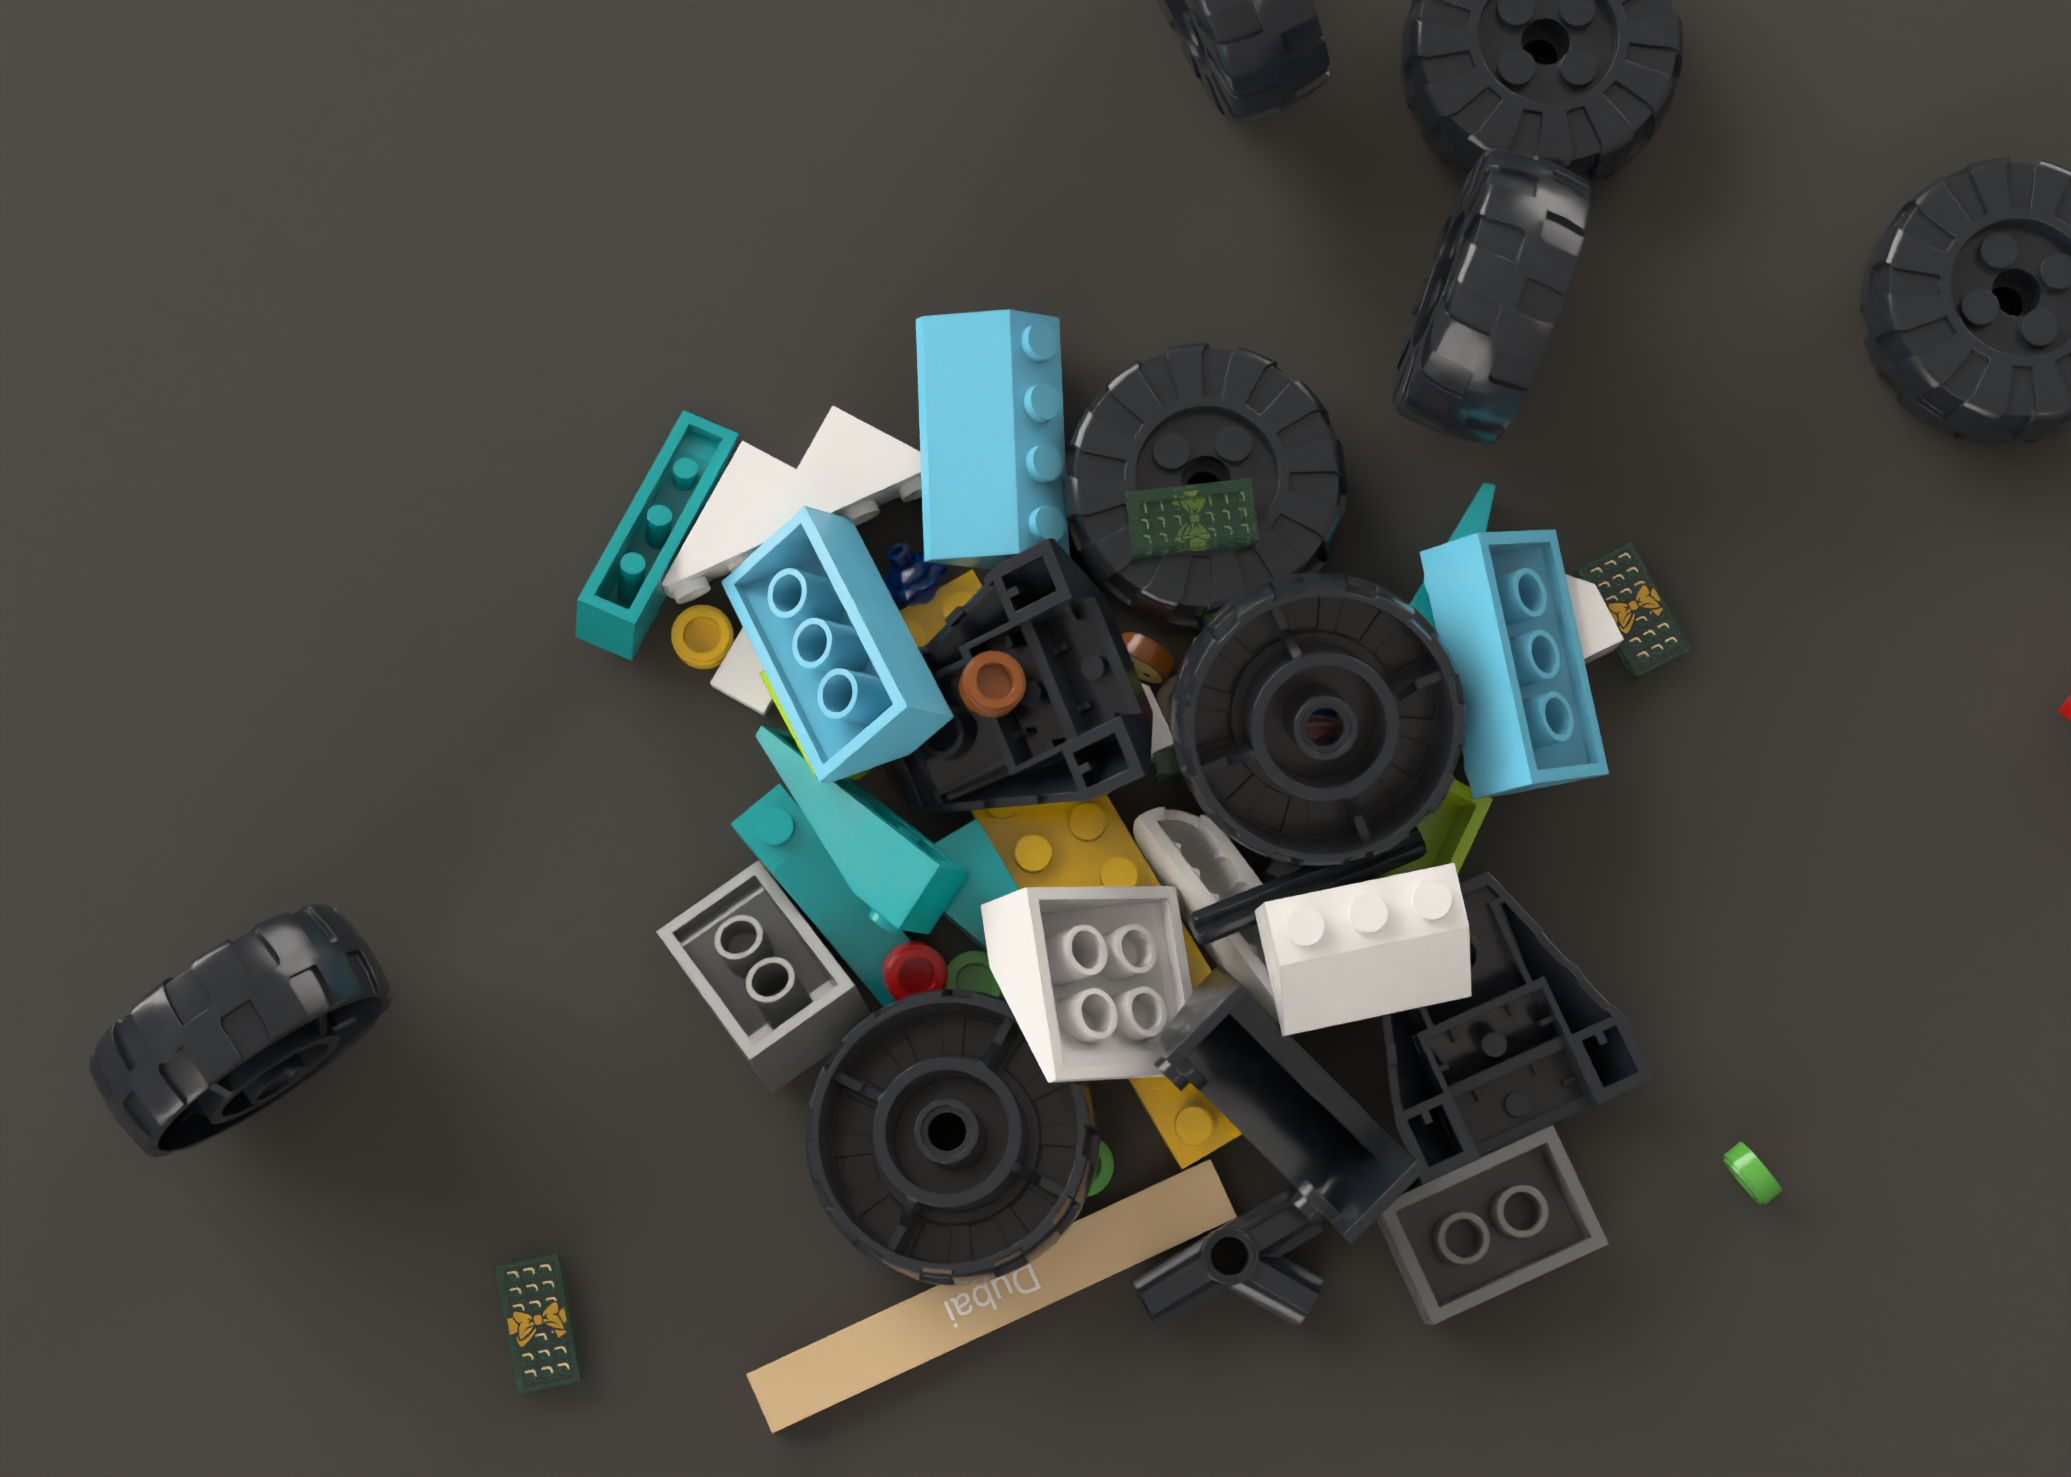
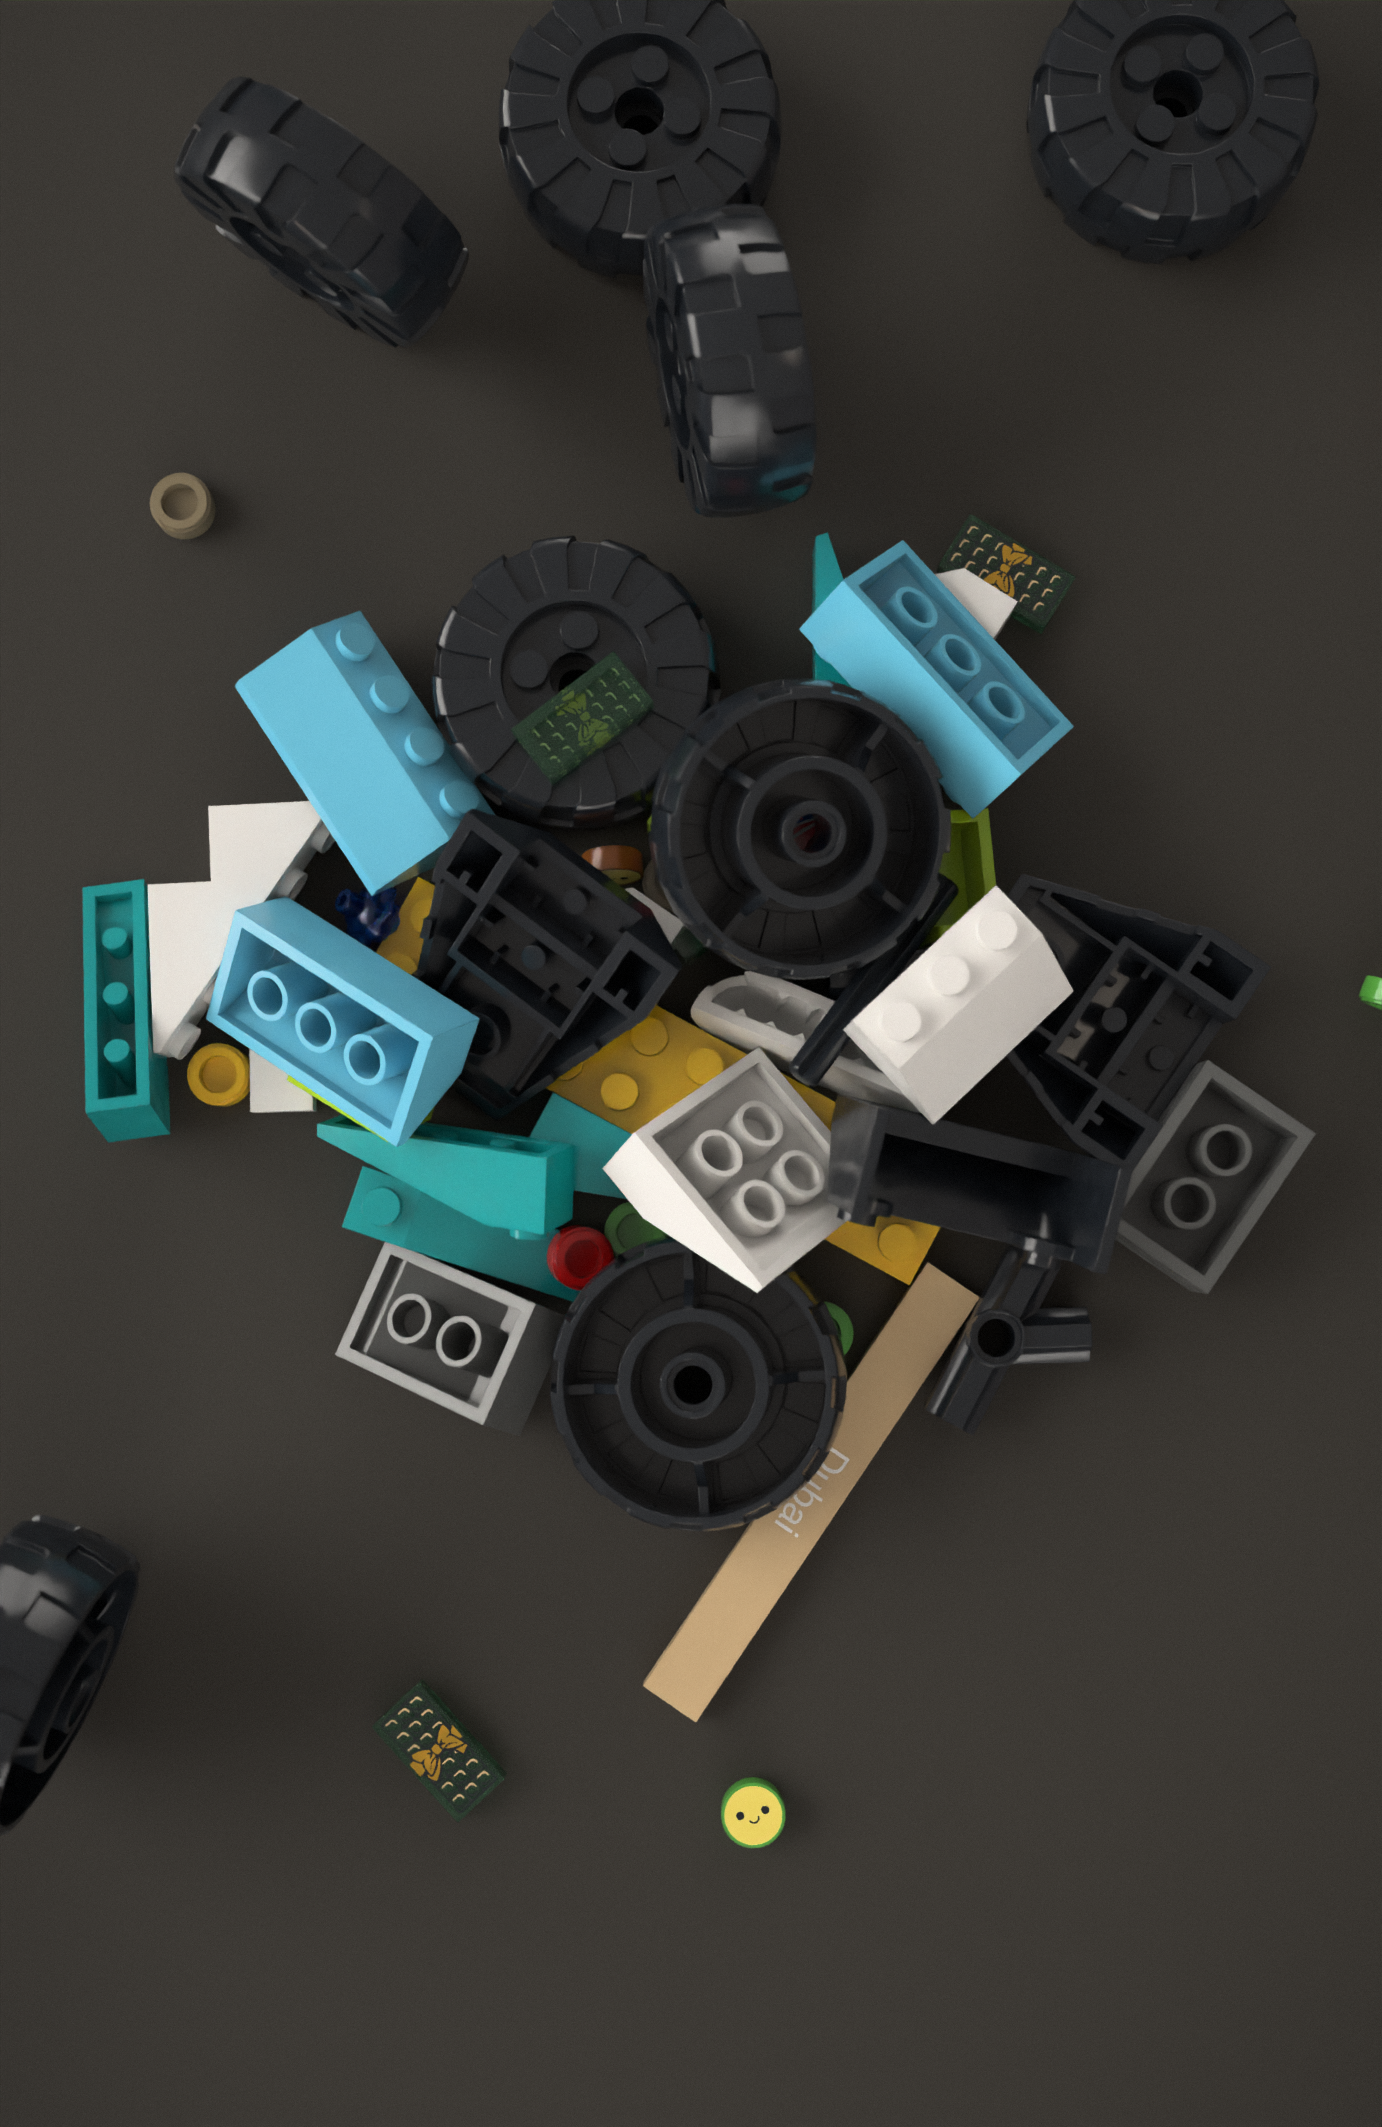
camera: 25 degrees left, 5 degrees up
(962, 140) = (182, 506): none -> dark tan tile
(992, 684) = (496, 969): dark orange tile -> none

